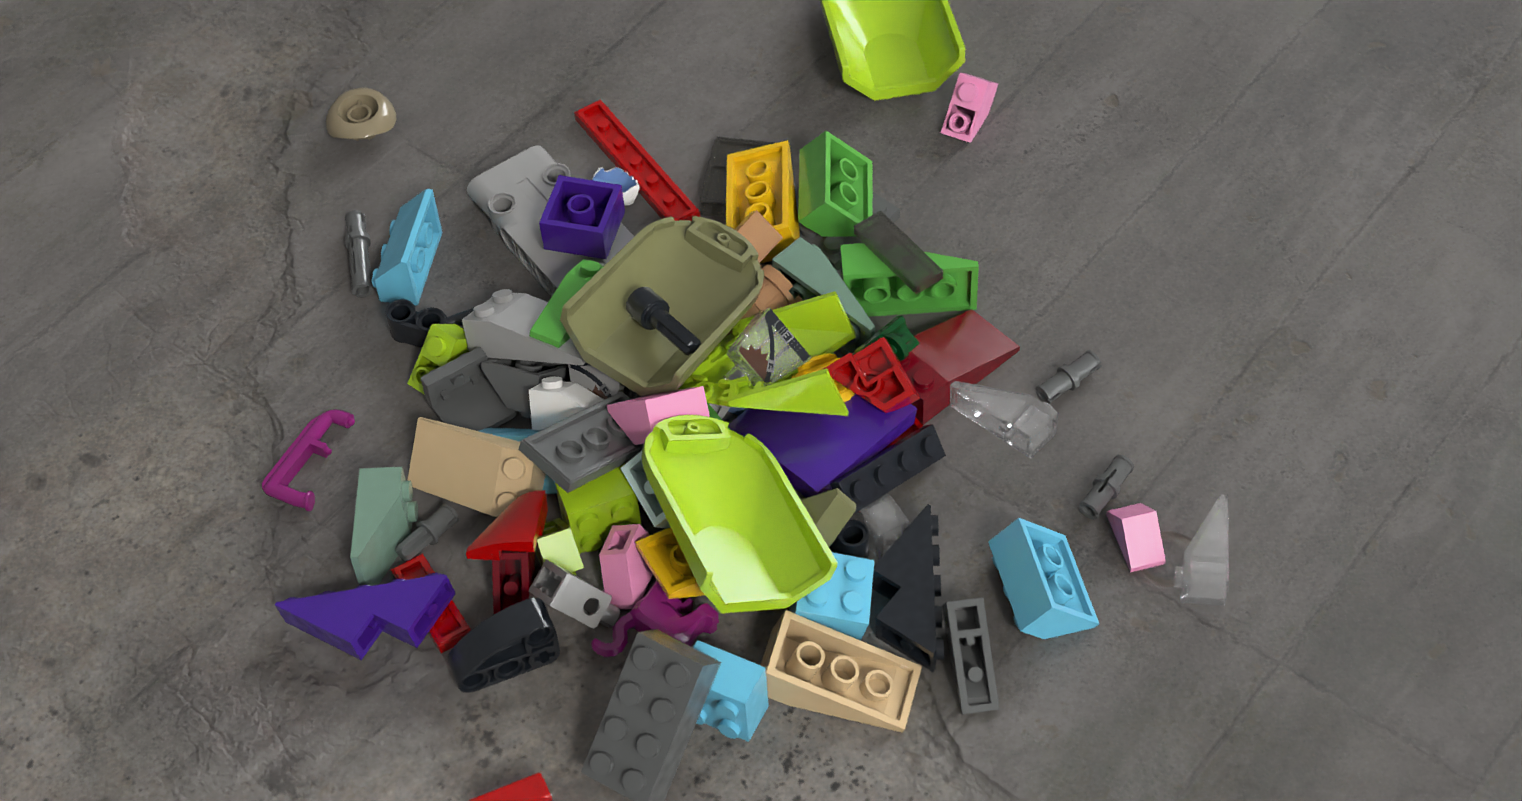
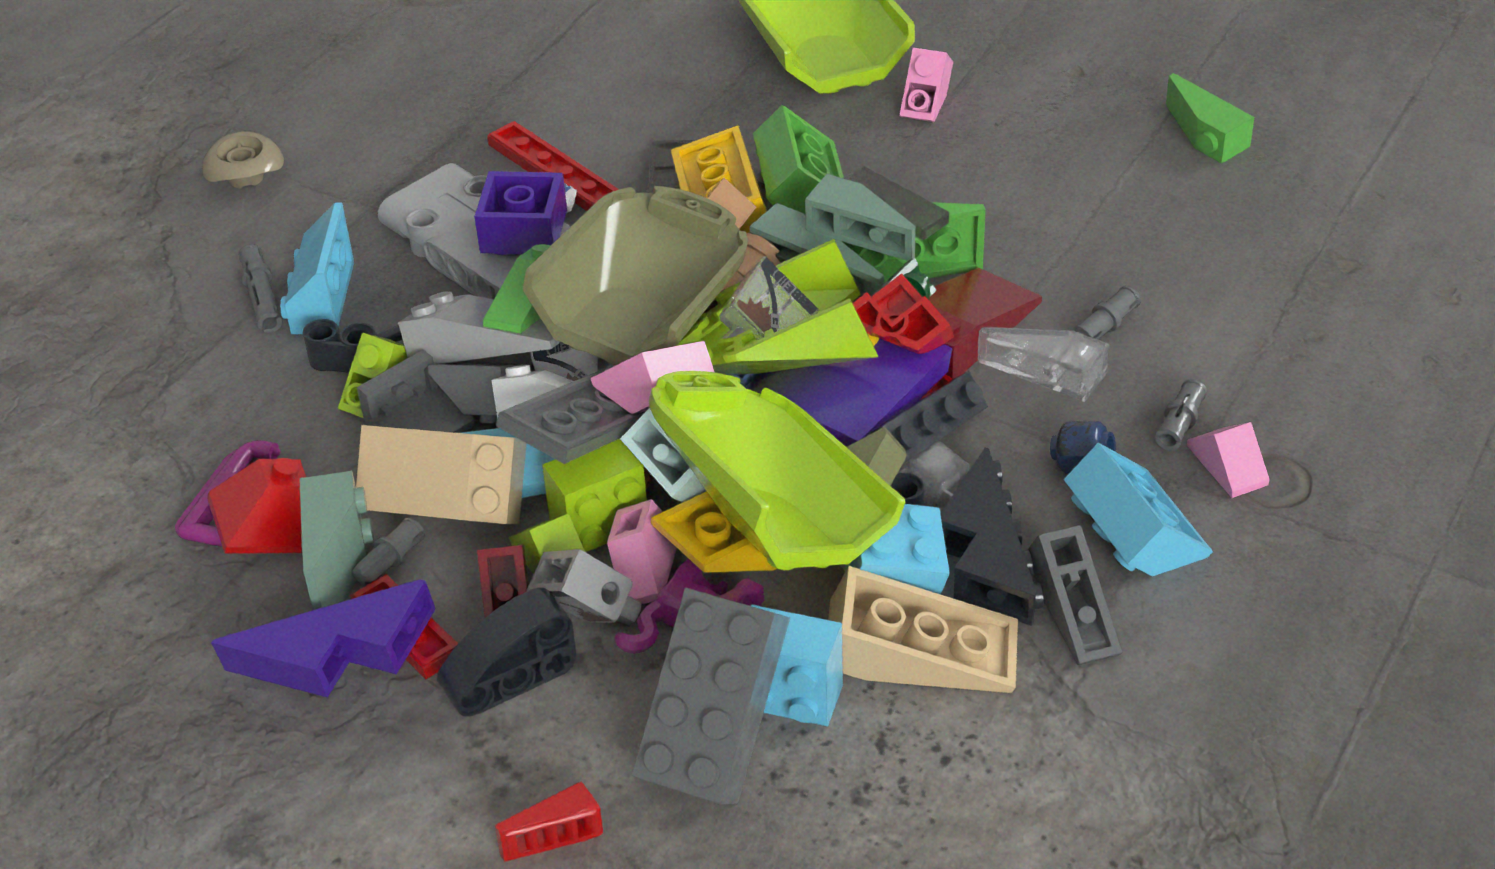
camera: 10 degrees left, 10 degrees down
(327, 480) = (260, 508): none -> red slope
(513, 529) = (504, 516): red slope -> none
(653, 313) = (628, 282): black piece -> none
(859, 264) = (858, 217): none -> sand green slope
(1010, 504) = (1077, 440): none -> dark blue head
(1206, 560) = (1320, 476): clear slope -> none
(1215, 181) = (1208, 121): none -> bright green slope

